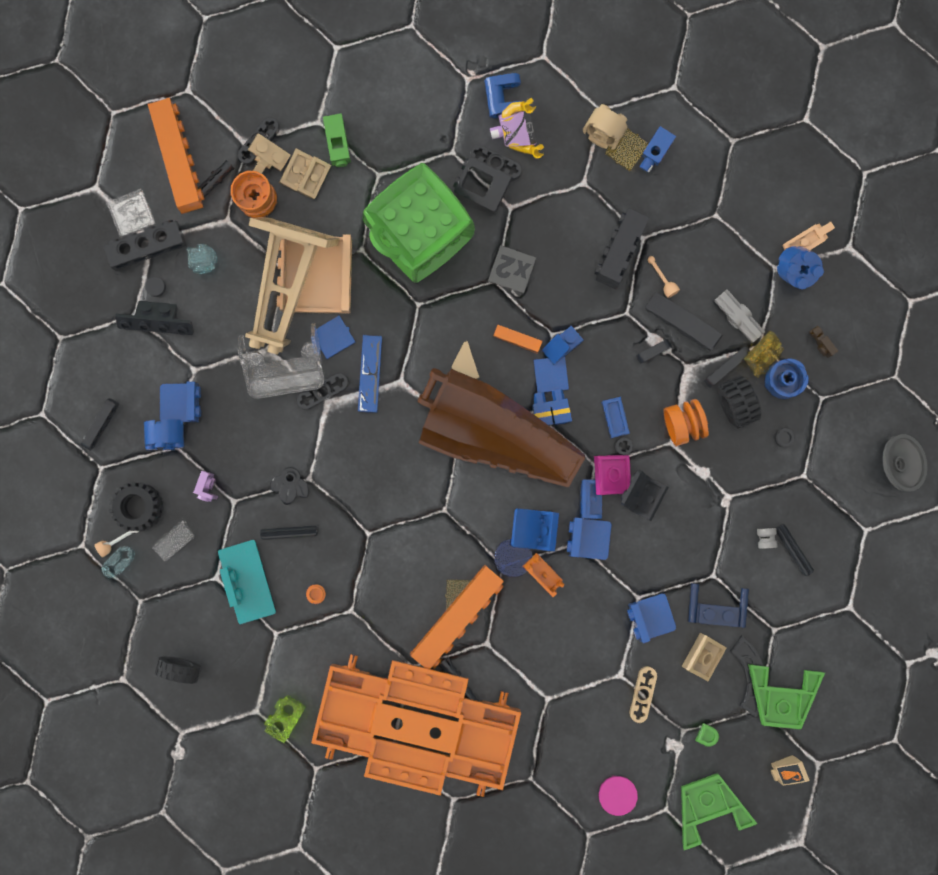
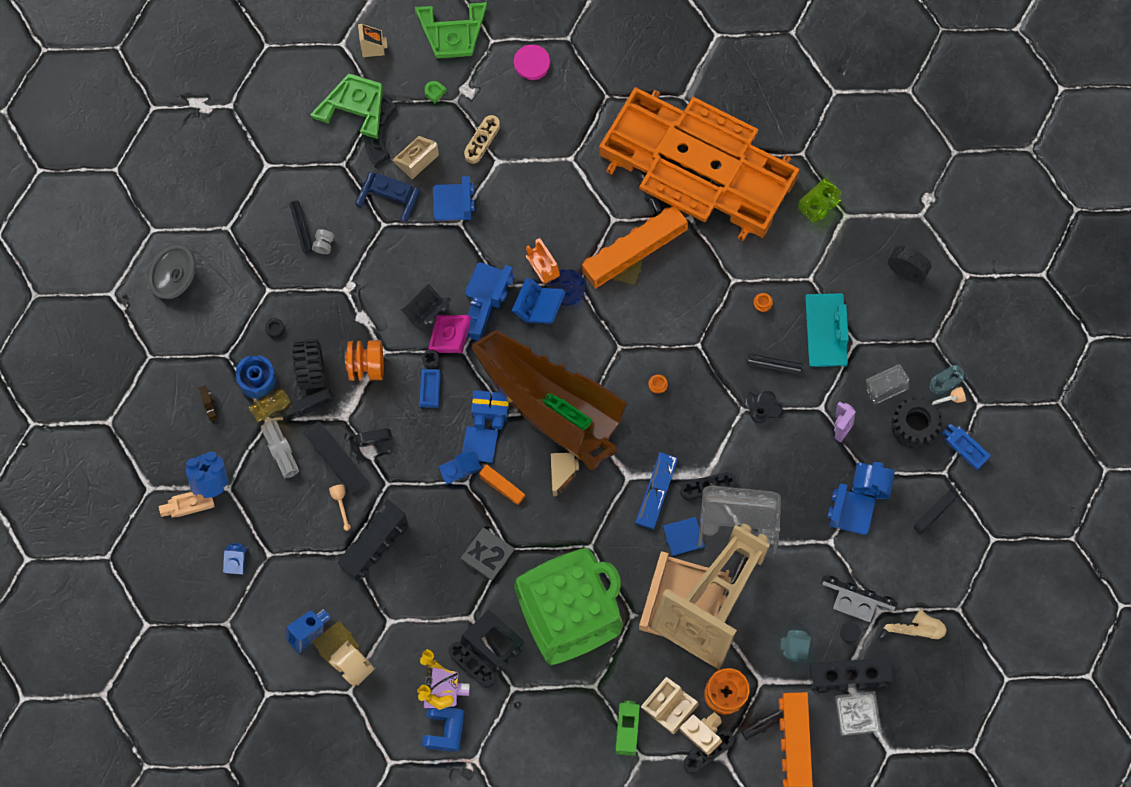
camera: 160 degrees left, 15 degrees down
(84, 497) = (966, 446): none -> blue hinge
(85, 309) = (926, 627): none -> tan piece
(396, 481) = (658, 384): none -> orange plate
(476, 422) = (567, 411): none -> green hinge
(746, 200) = (234, 558): none -> bracket

